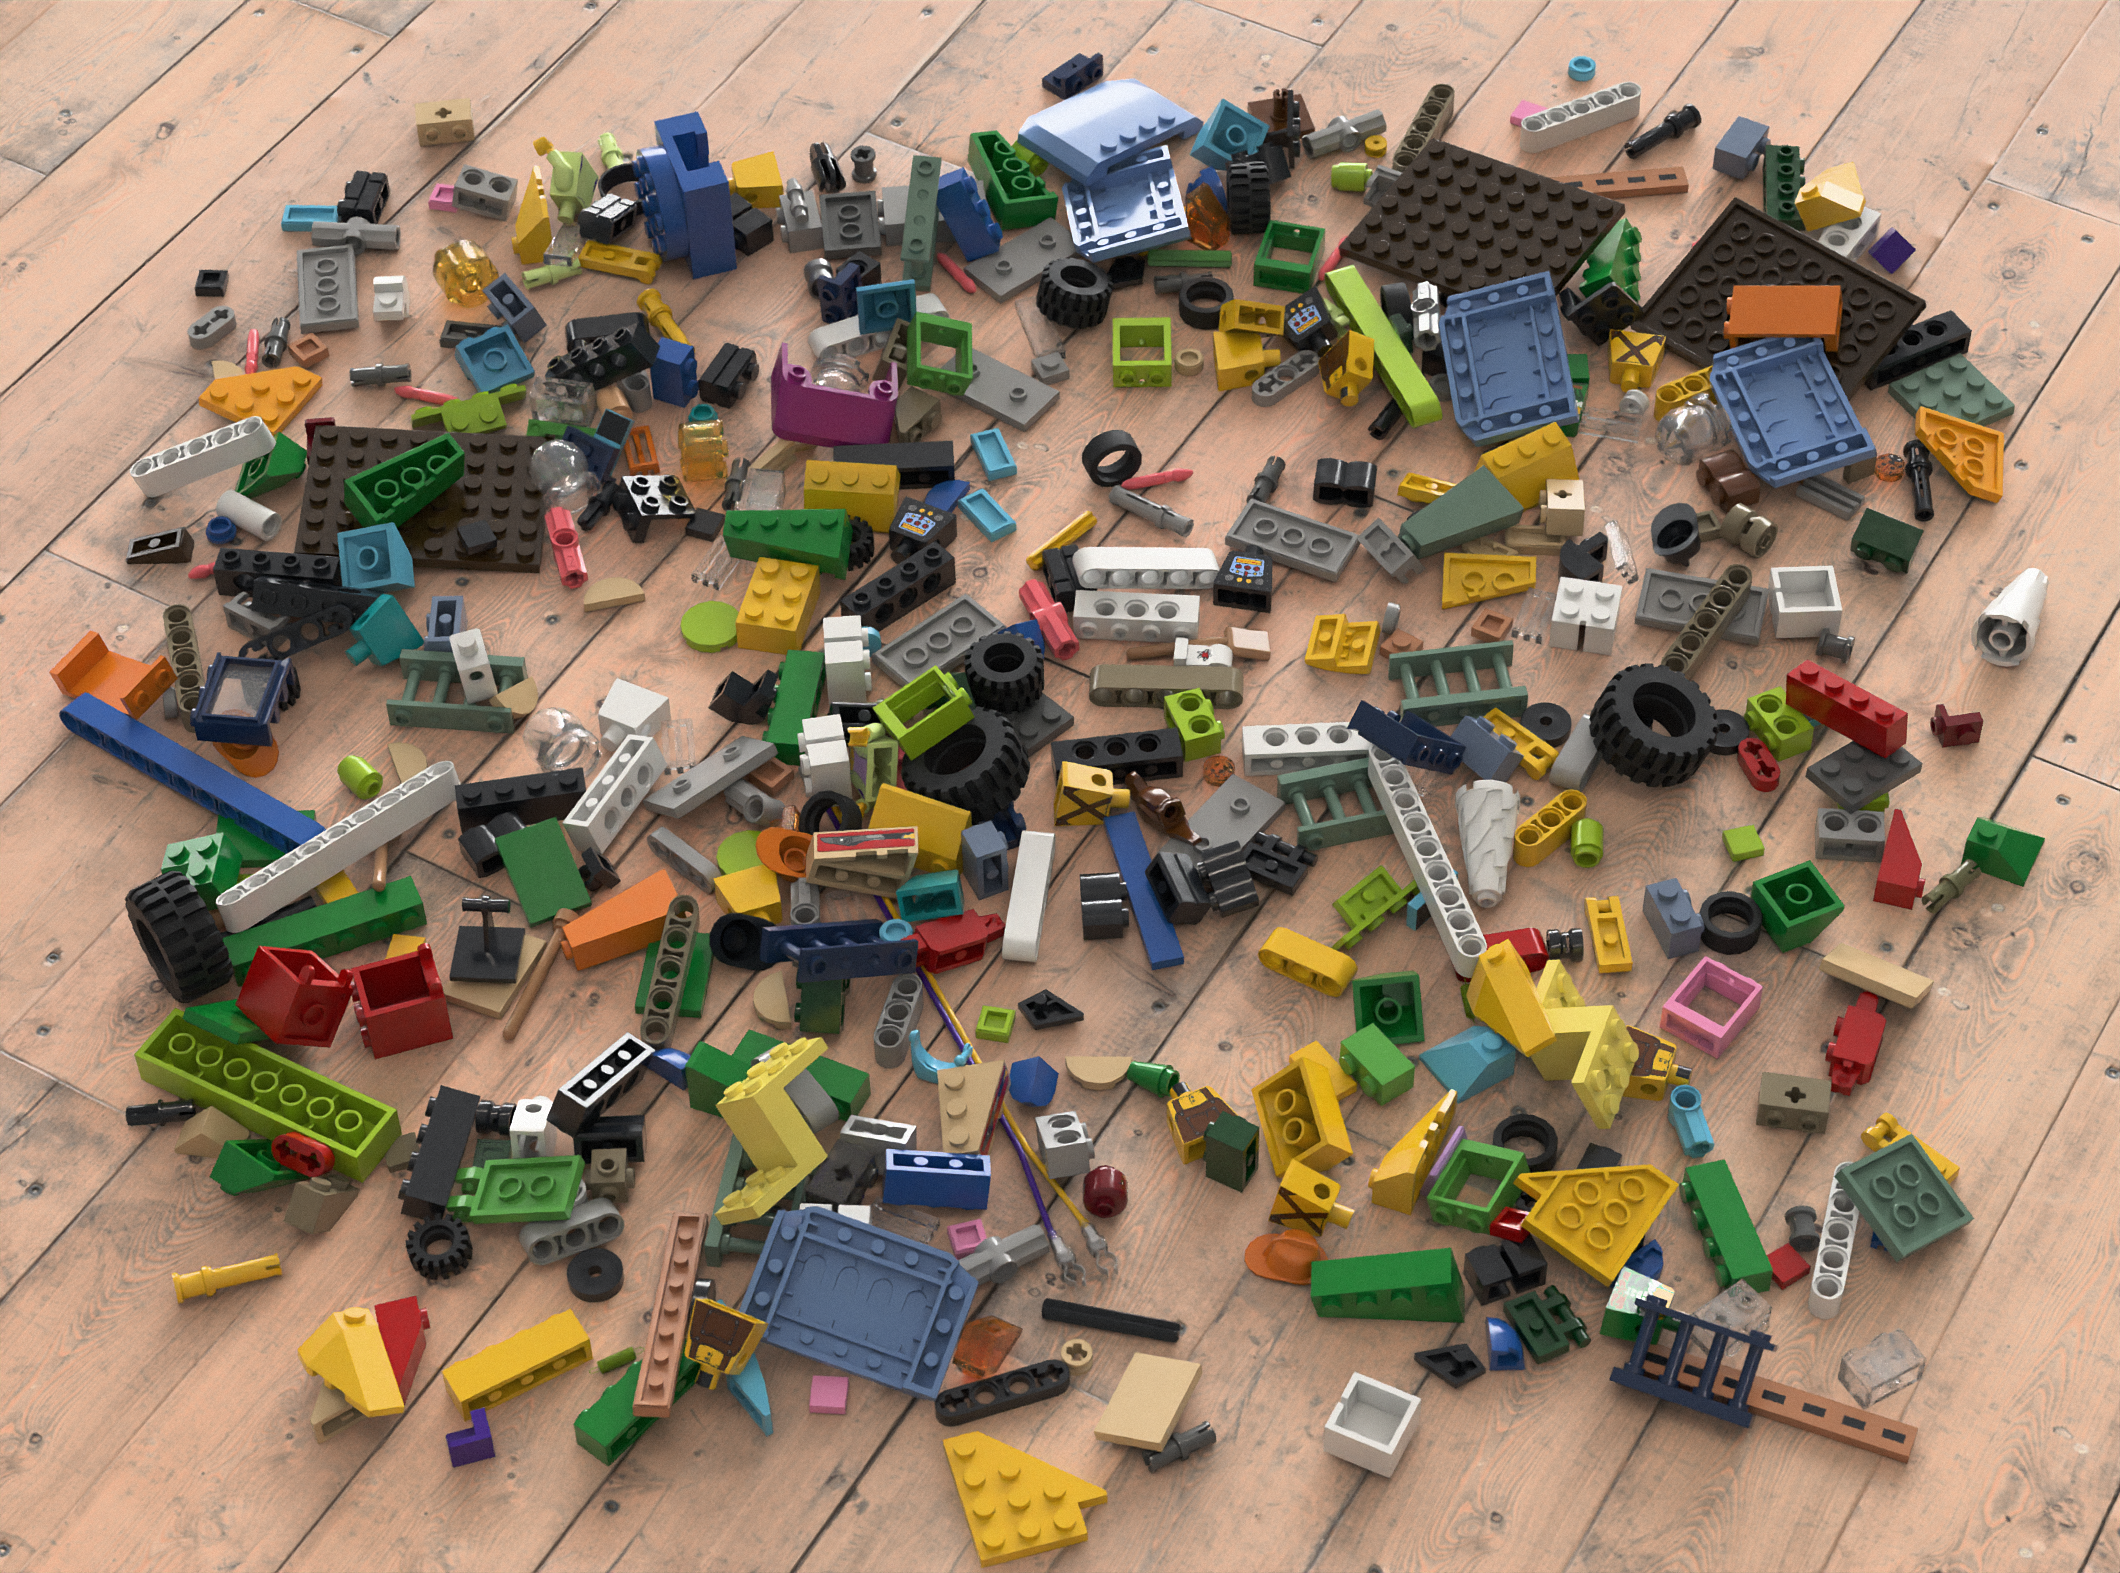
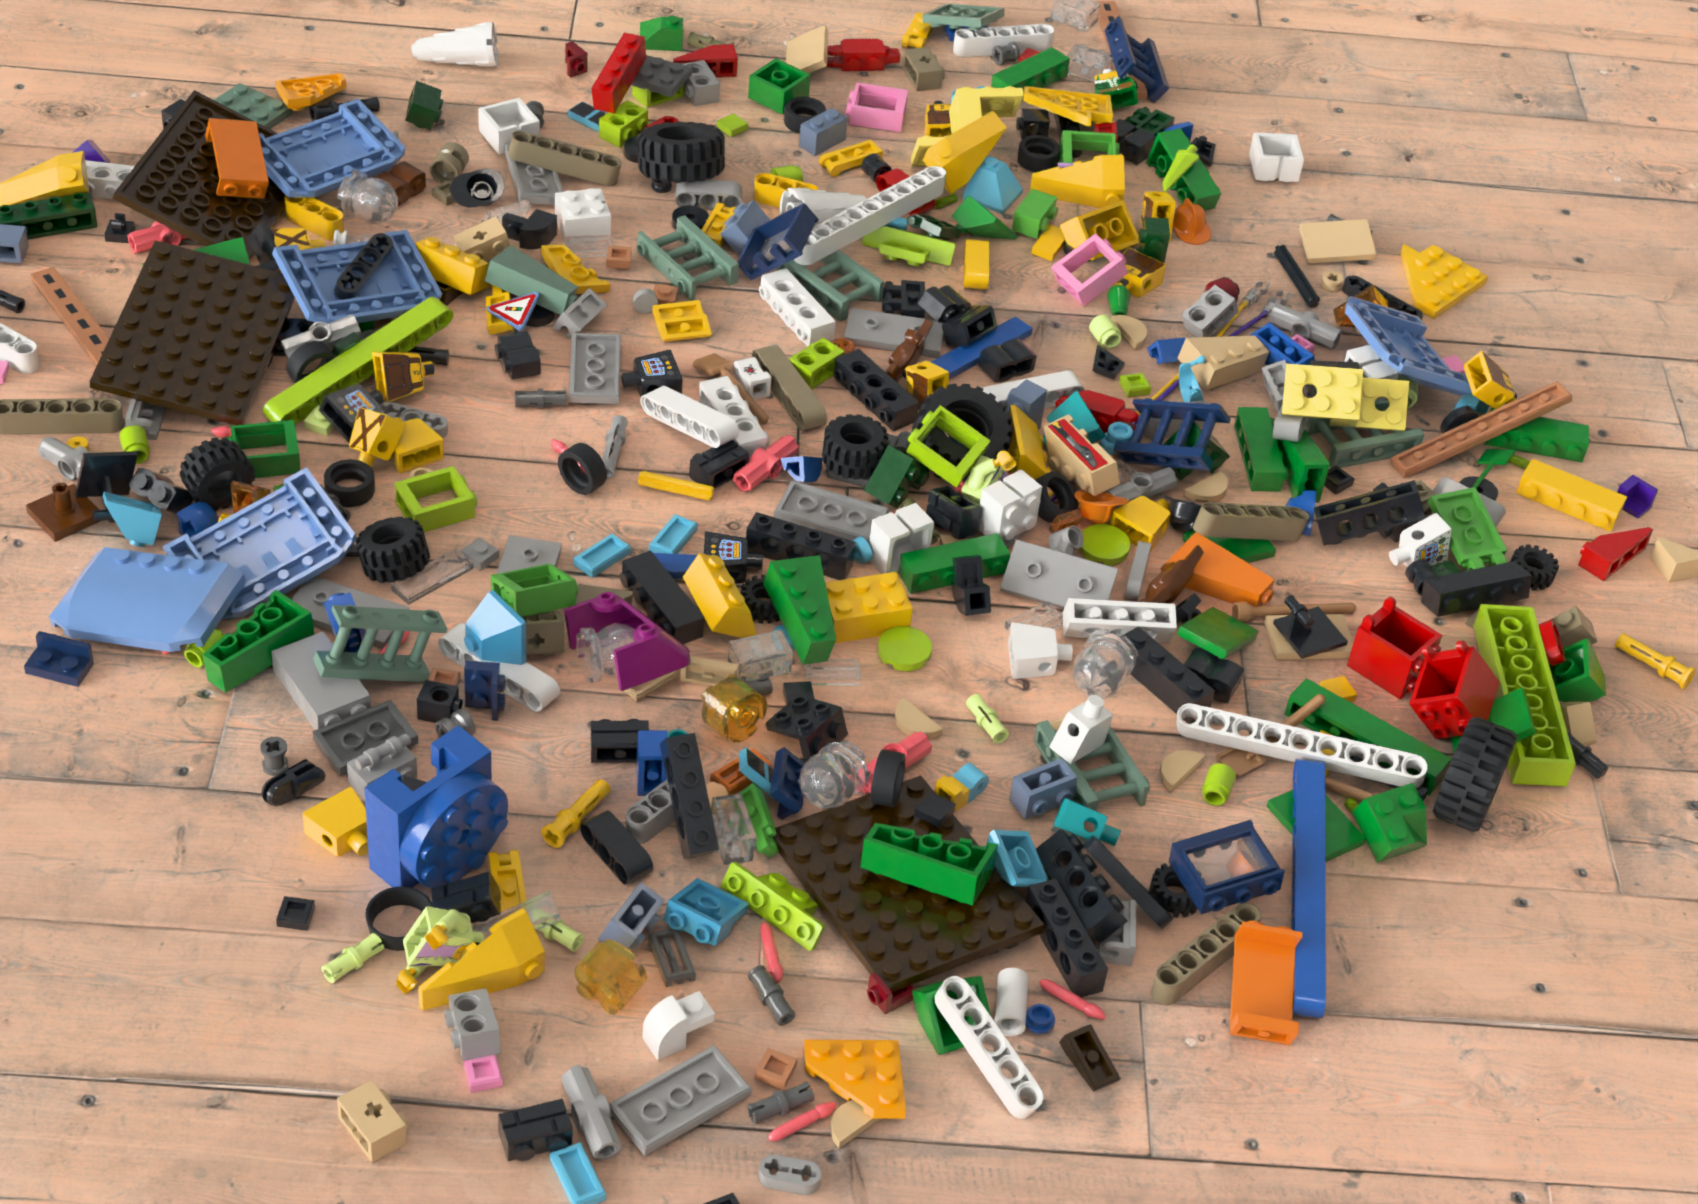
camera: 125 degrees left, 5 degrees down
(354, 1360) = (1657, 550): yellow wedge -> none
(502, 582) = (962, 785): none -> leg
(523, 501) = (888, 778): none -> black tyre
(573, 644) = (995, 728): none -> yellowish green pin
(630, 1327) = (1493, 457): none -> green piece
(635, 858) = (1172, 579): none -> reddish brown animal
(711, 1139) = (1338, 480): none -> black tile
(1102, 1031) = (1105, 331): none -> yellowish green brick
(1230, 1059) = (1098, 282): none -> bright pink window
(1375, 1252) = (1182, 162): none -> lime bar
(1390, 944) = (934, 227): none -> dark green plate
(1412, 490) = (515, 311): none -> piece
(1522, 363) = (363, 266): none -> black beam

